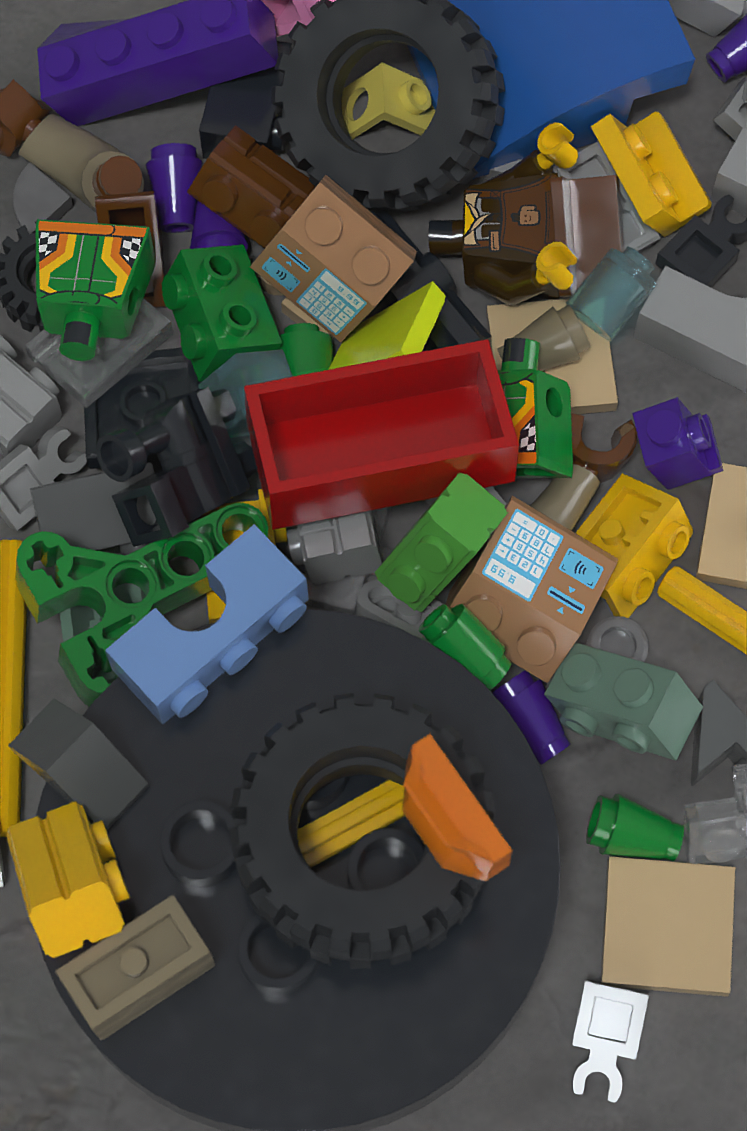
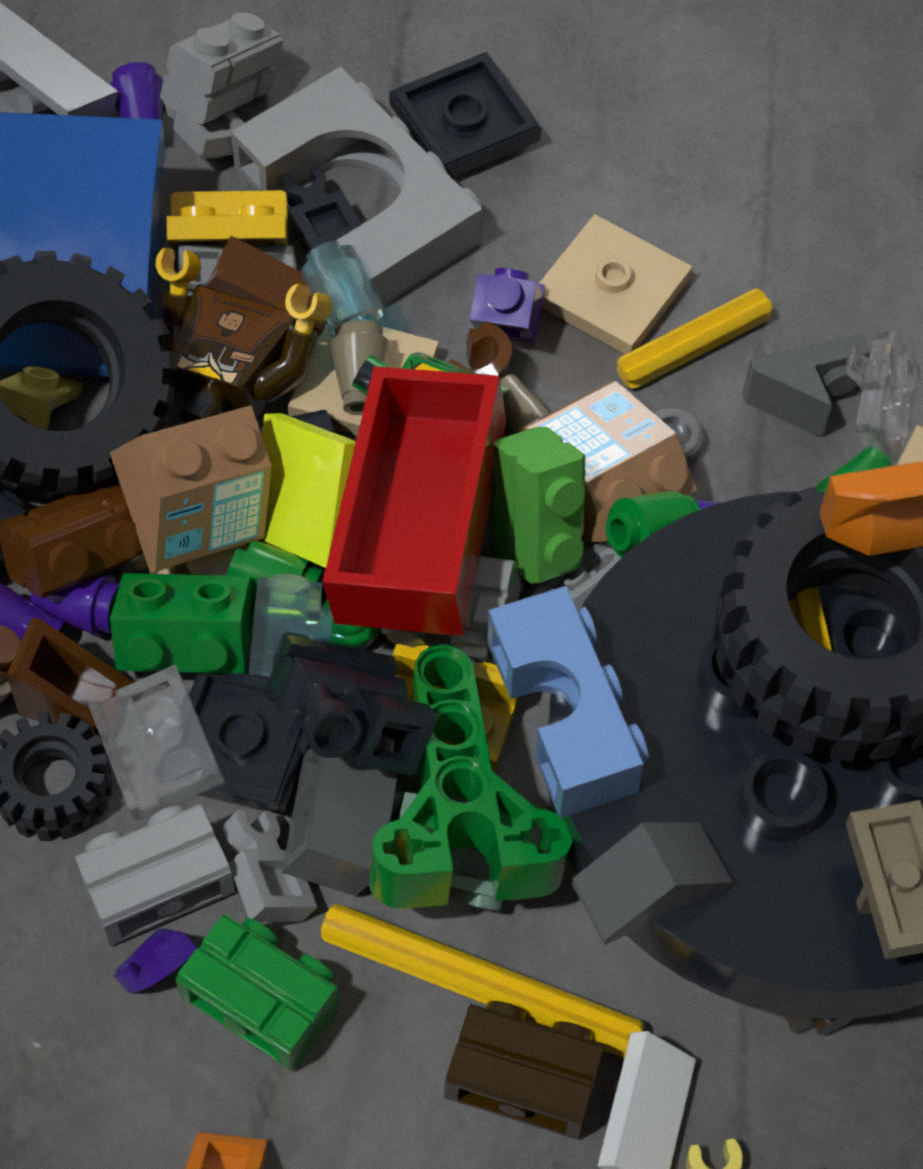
camera: 70 degrees left, 10 degrees down
(65, 878) = (792, 909): yellow brick -> none
(91, 281) = (99, 714): green torso -> none
(624, 701) = (743, 434): sand green brick -> none
(644, 533) = (566, 367): yellow bracket -> none

